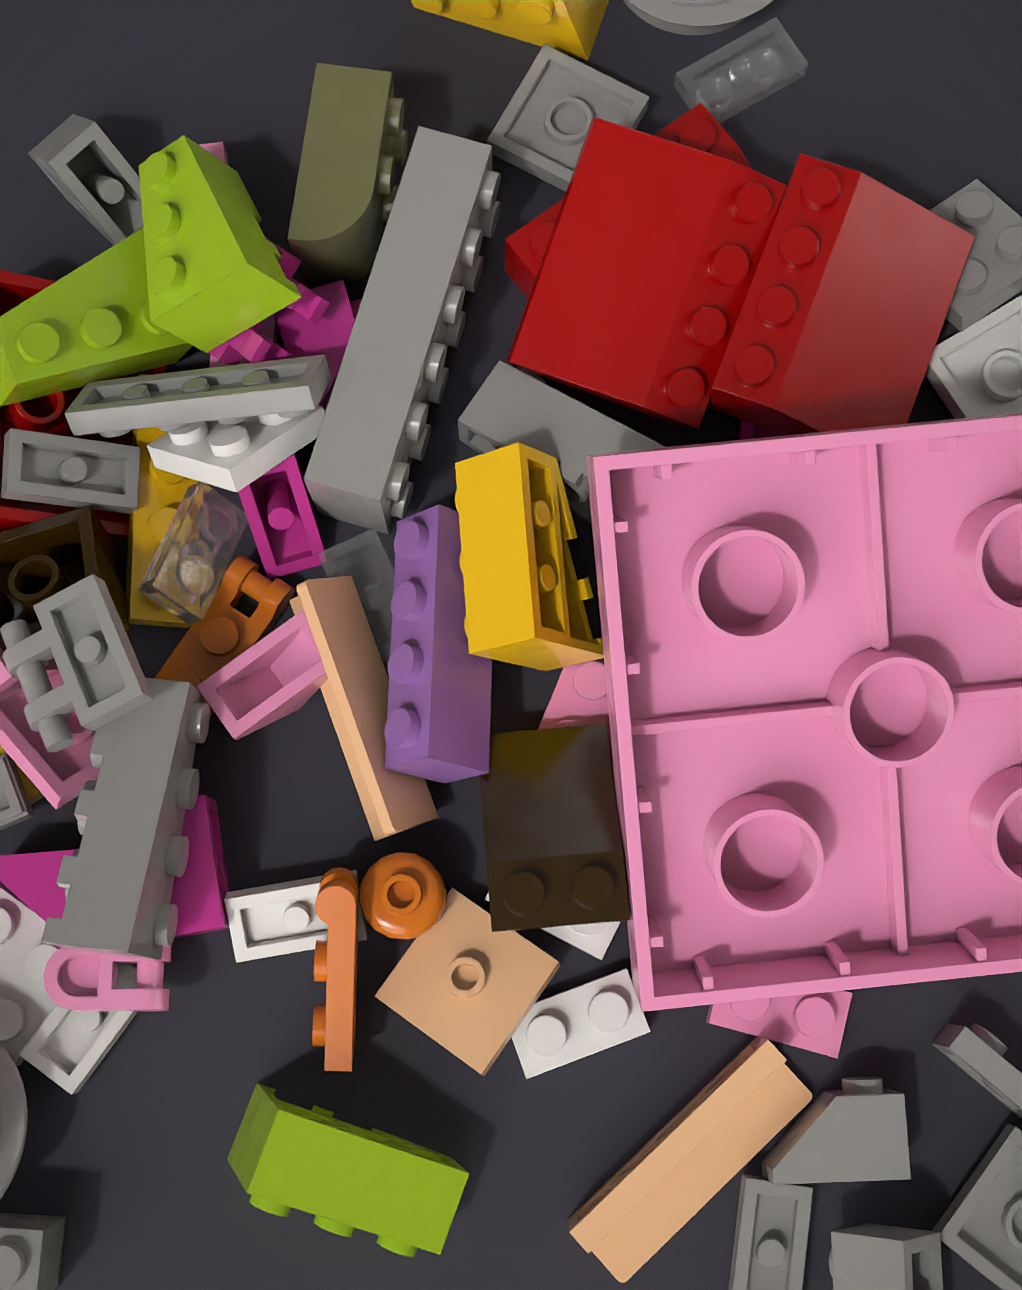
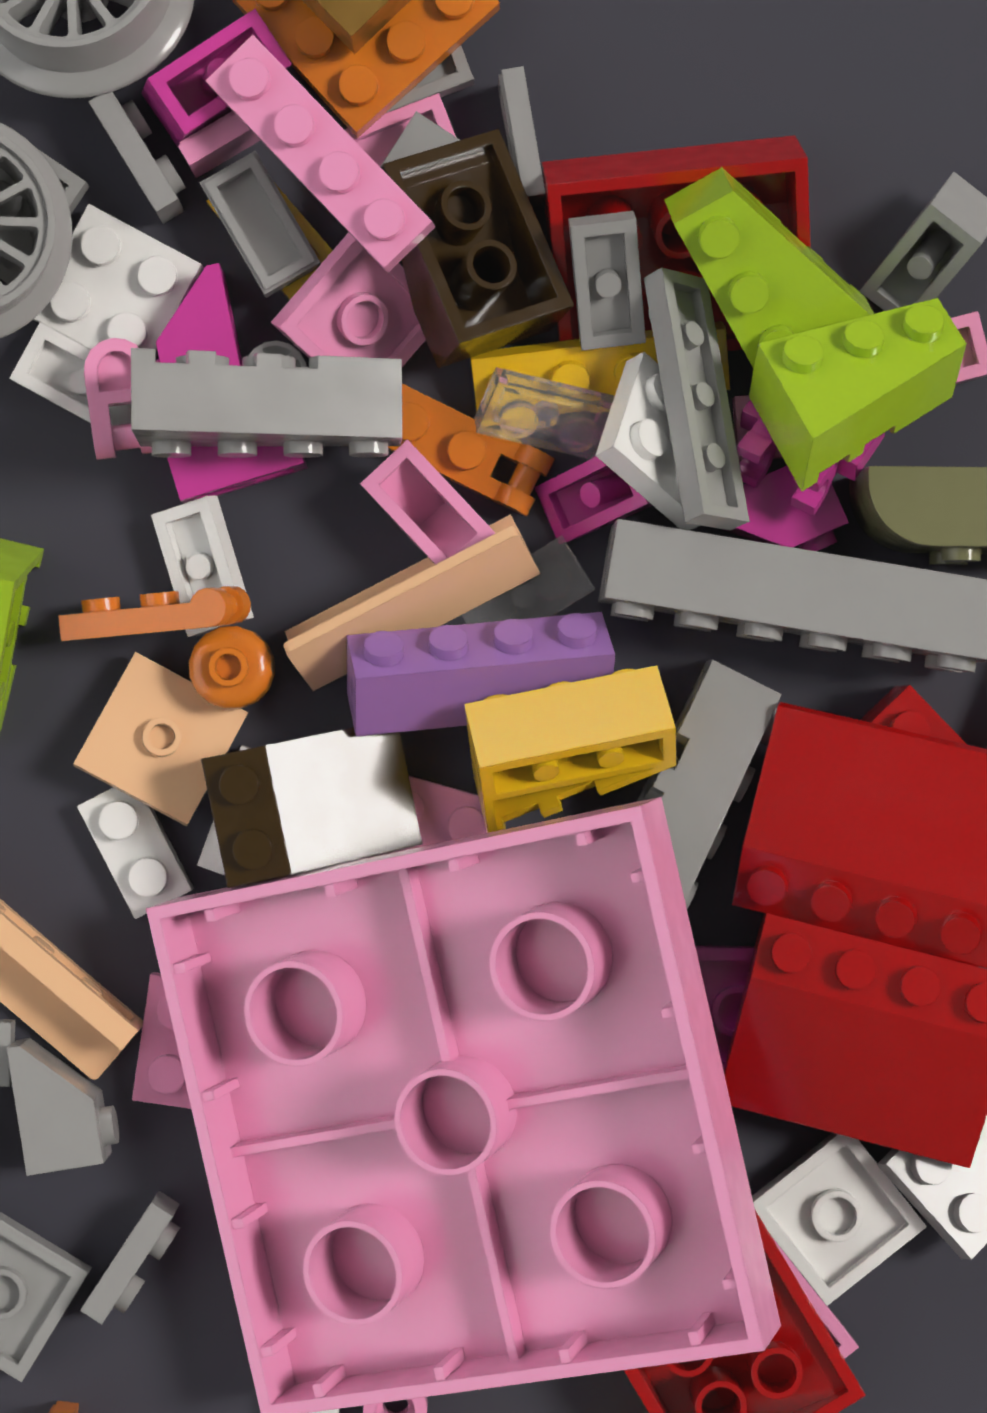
camera: 85 degrees right, 10 degrees up
(91, 655) = (411, 343): light grey plate -> none

